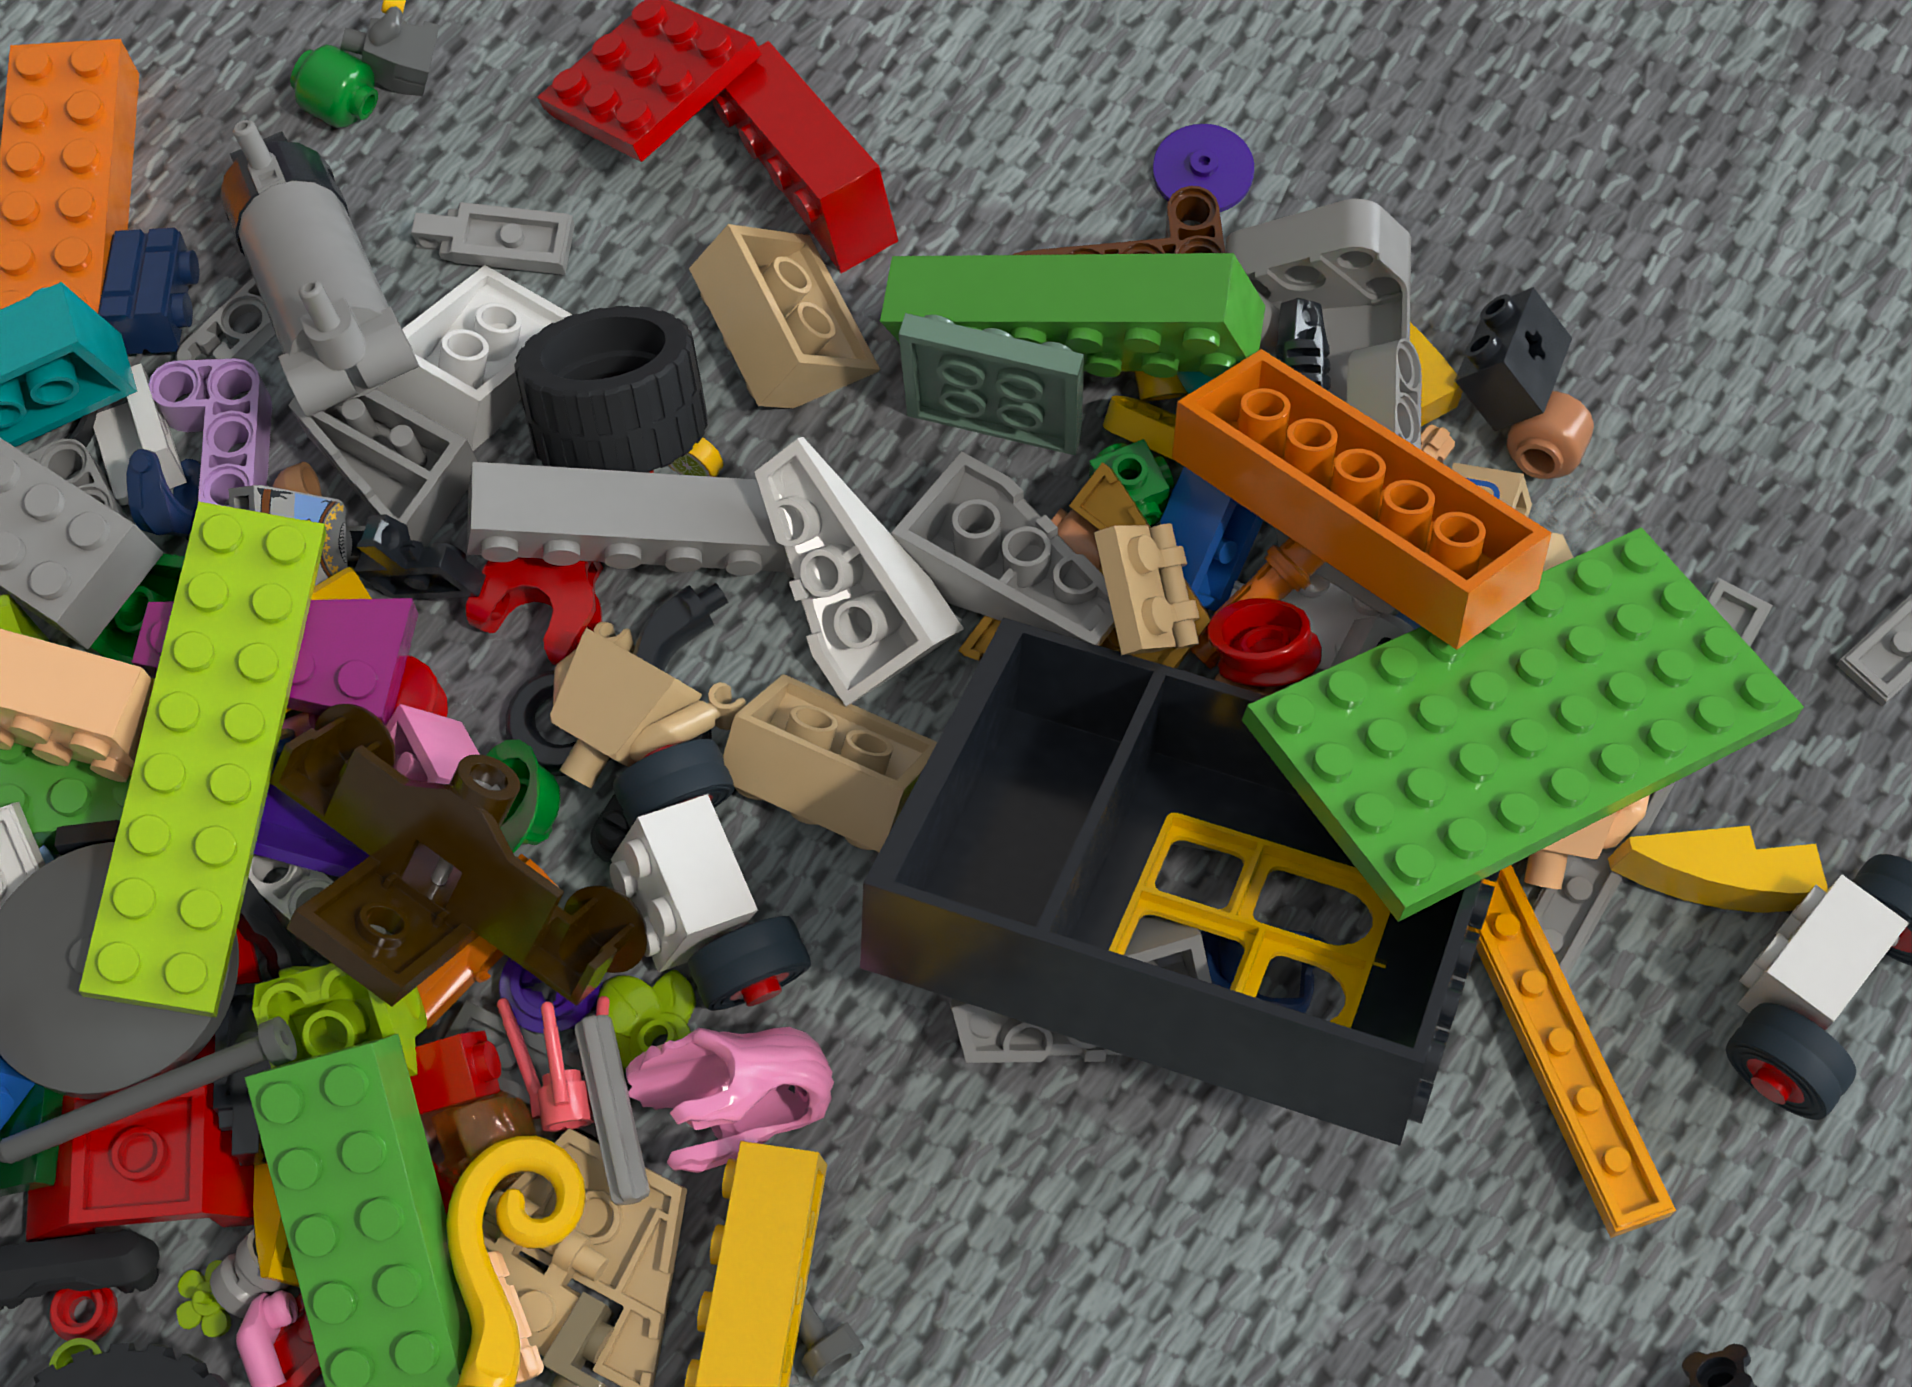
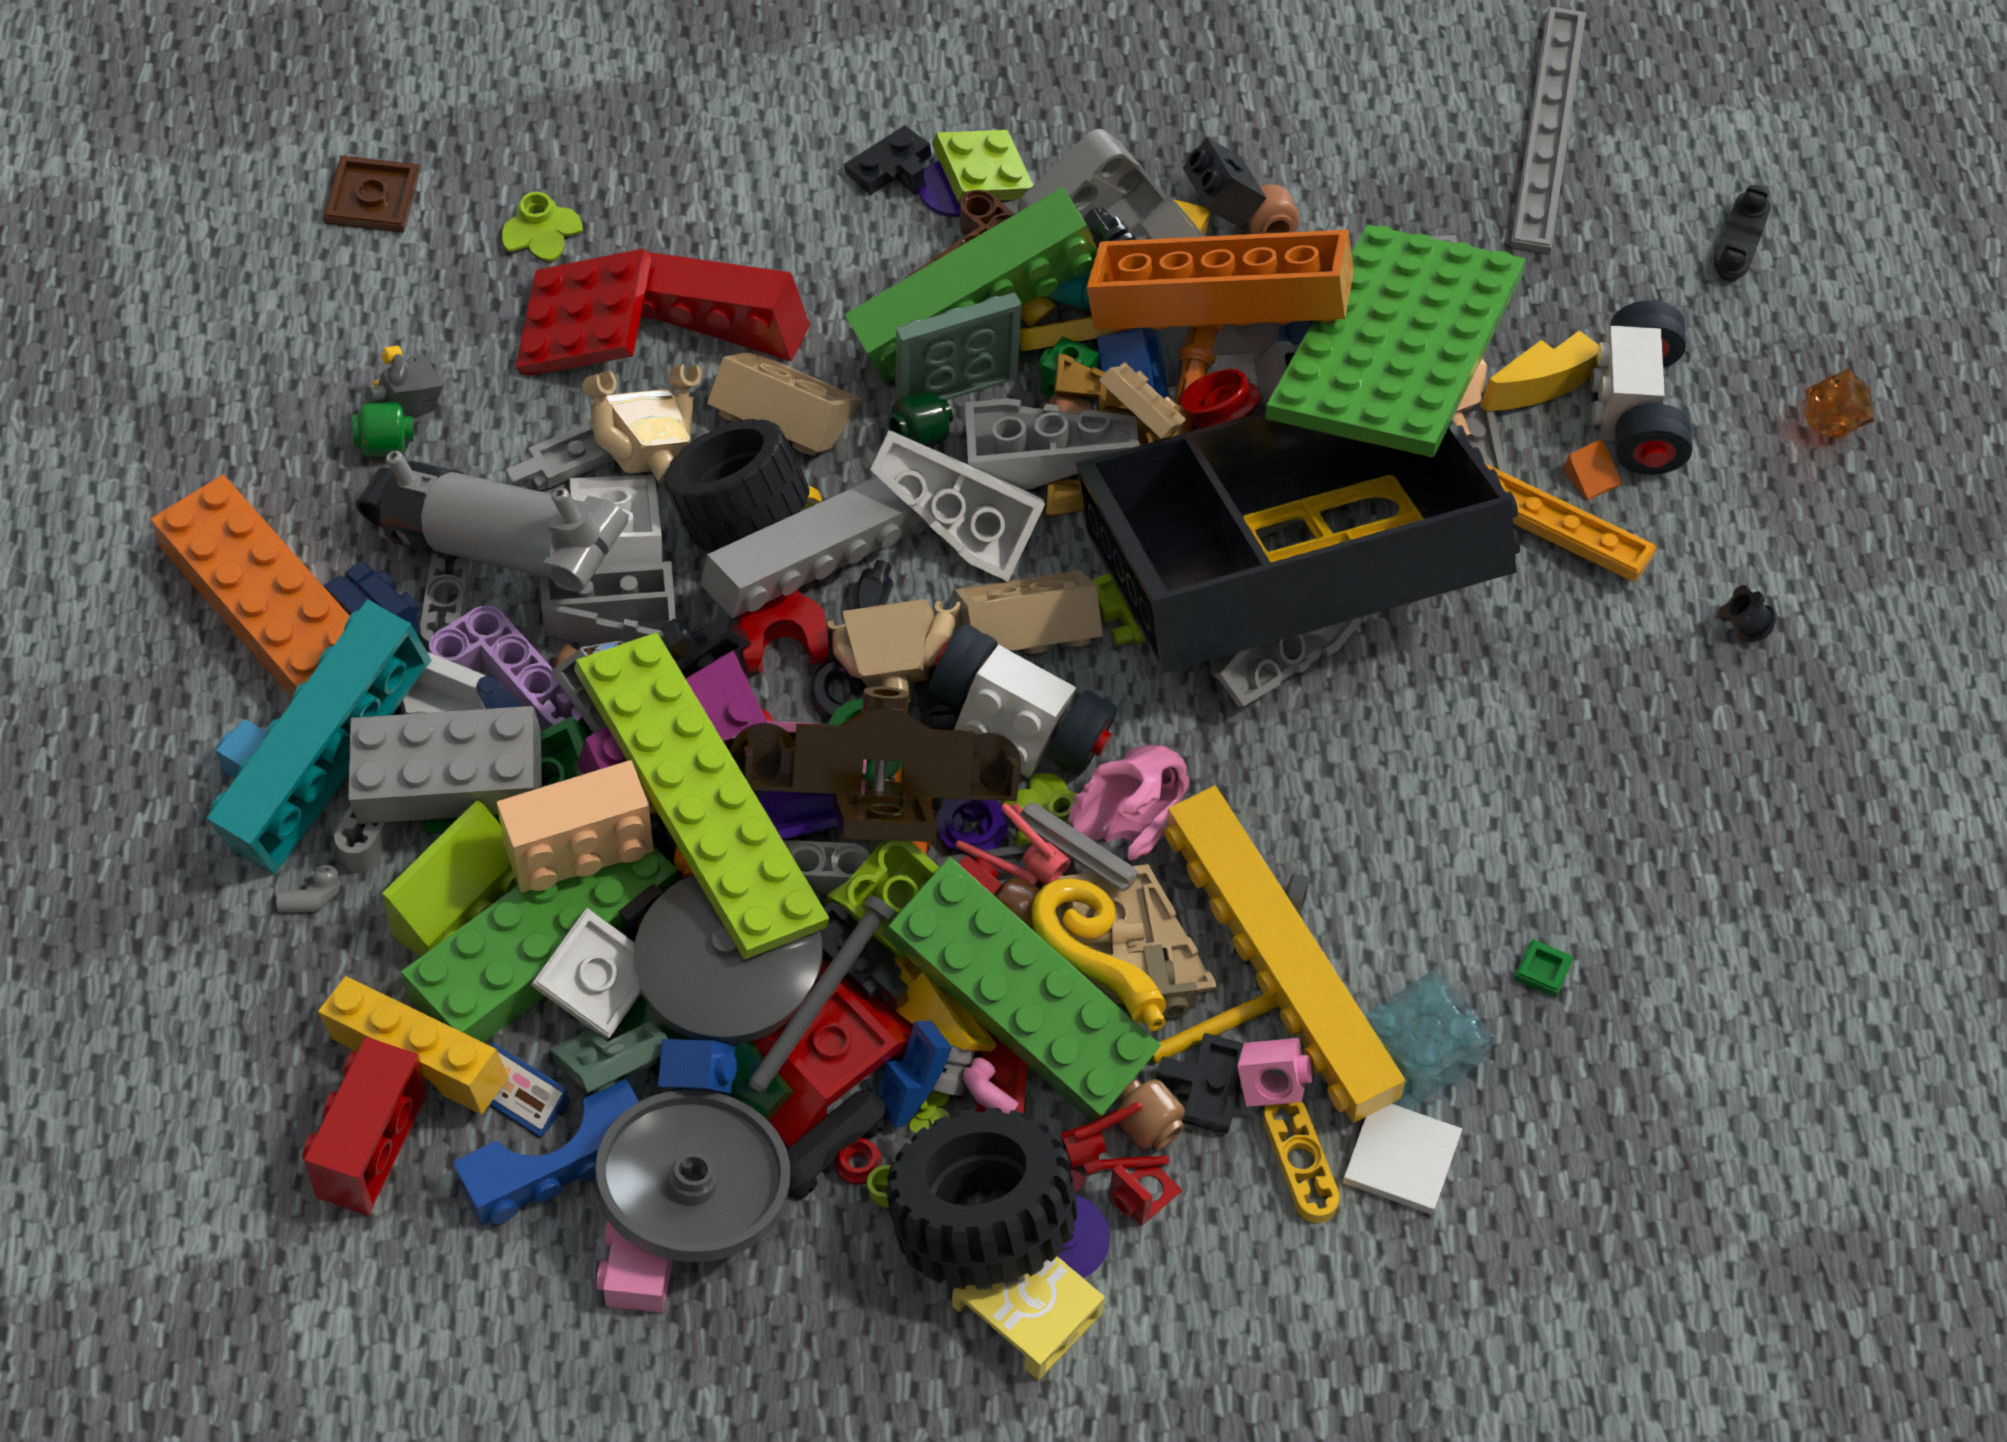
camera: 45 degrees left, 10 degrees down
(204, 1256) = (910, 1081): none -> blue slope
(590, 253) = (642, 427): none -> tan torso
(908, 439) = (921, 418): none -> dark green head
(1153, 94) = (891, 160): none -> black hinge
(1252, 159) = (982, 162): none -> lime plate
(1686, 1043) = (1592, 470): none -> orange slope

